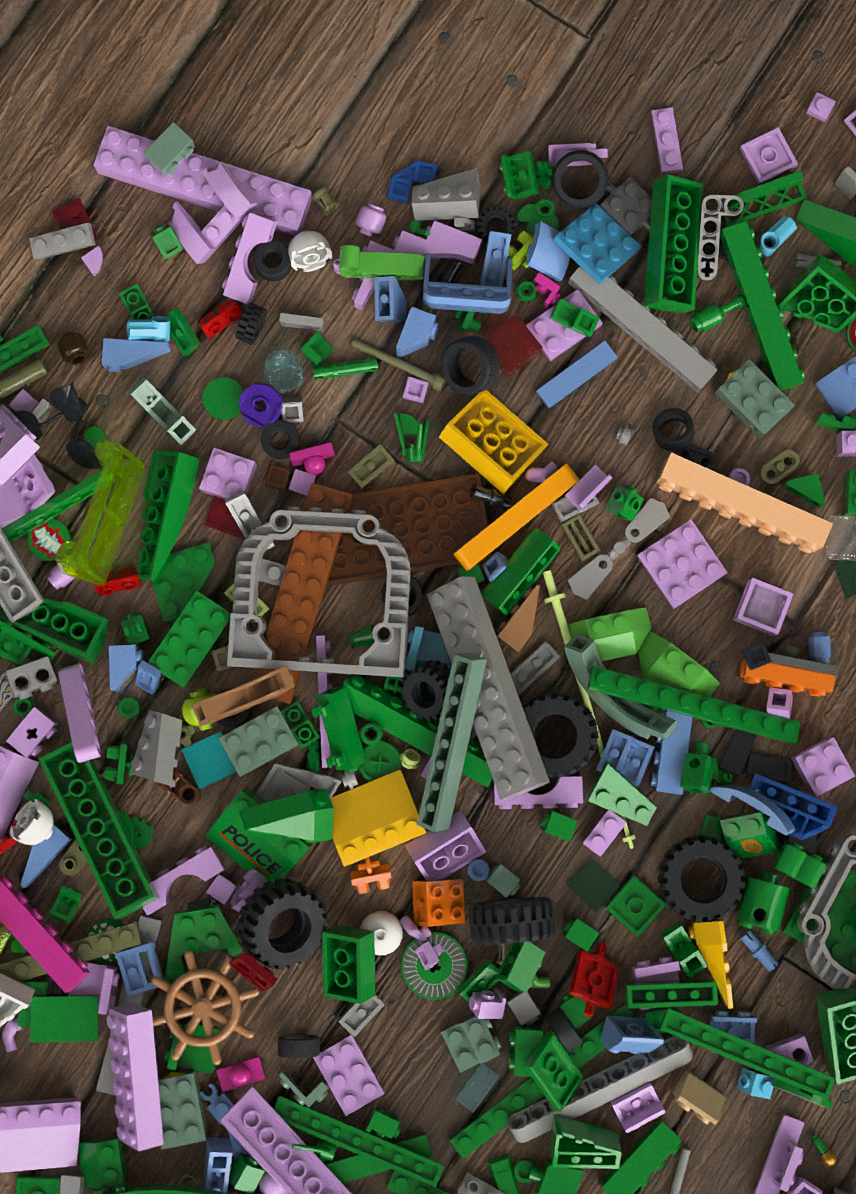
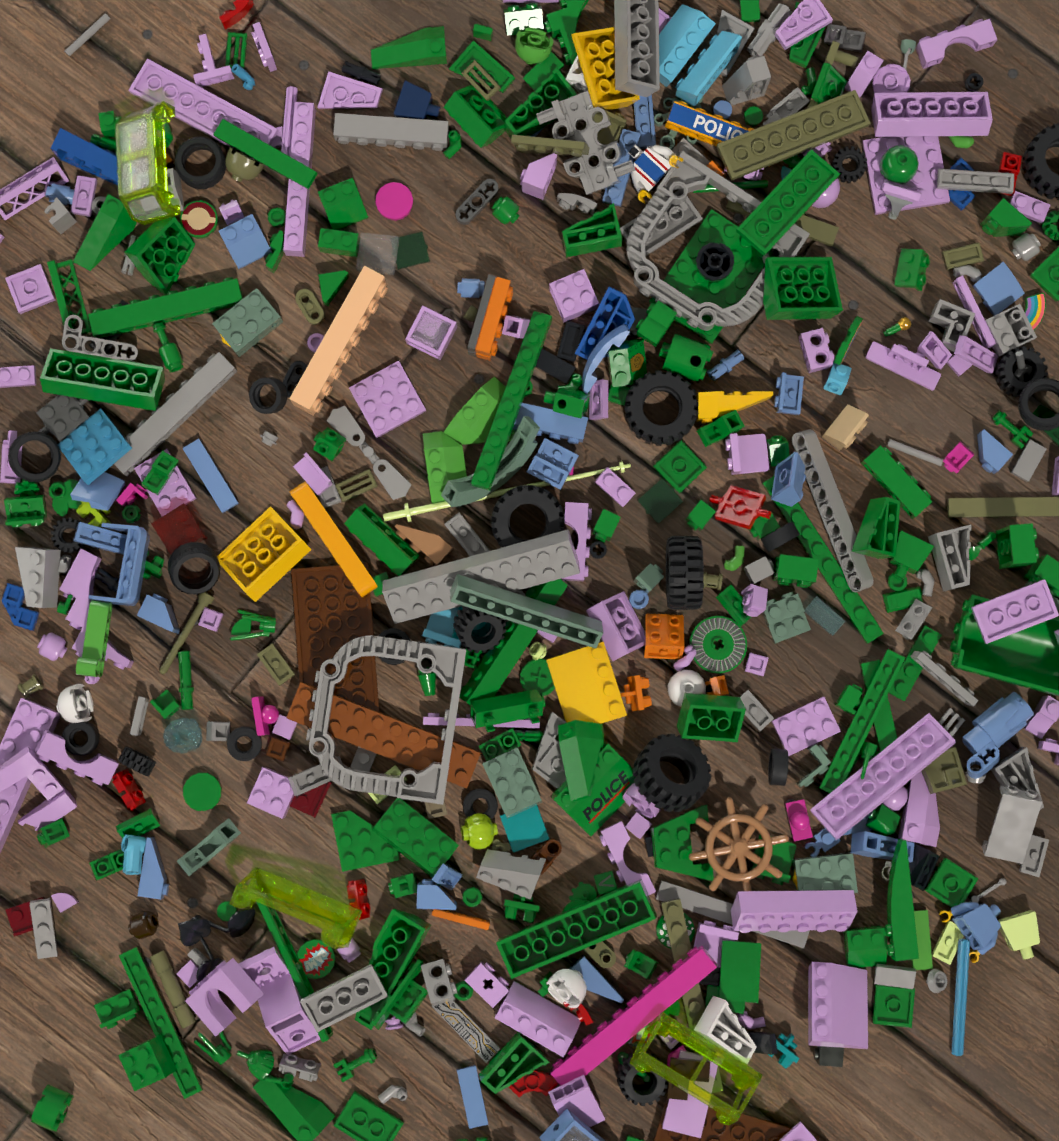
camera: 85 degrees left, 0 degrees up
(79, 713) = (473, 939): lavender beam -> none
(102, 699) = (461, 918): none -> orange tile
(133, 968) = (701, 907): medium blue plate -> none
(155, 856) = (605, 882): none -> green tile
(168, 498) = (289, 848): green wedge -> none
(243, 697) = (471, 791): medium nougat arch -> none
(251, 970) = (714, 796): dark red plate -> none
(272, 399) = (222, 756): dark purple plate -> none
(349, 779) = (551, 705): light grey plate -> none
(364, 733) = (509, 677): green cone -> none
(386, 969) = (719, 686): none -> orange tile
(389, 300) = (128, 635): medium blue slope -> none
(415, 1011) = (756, 664): none -> lavender tile
(429, 955) = (708, 647): lavender tile -> none
(490, 497) = (313, 560): black pin -> none
(495, 565) = (374, 561): medium blue slope -> none
(520, 966) = (724, 569): green brick -> none
(536, 822) = (602, 546): none -> black bush
(553, 1071) = (815, 548): green tile -> none
(620, 796) = (585, 470): wing -> none
(637, 1107) = (850, 480): lavender bracket -> none
(670, 993) = (756, 443): green brick -> none
(703, 806) = (598, 400): none -> lavender plate
(747, 1053) = (811, 383): green plate -> none
(756, 656) = (474, 342): black plate -> none
(777, 235) = (102, 288): medium azure piece -> none

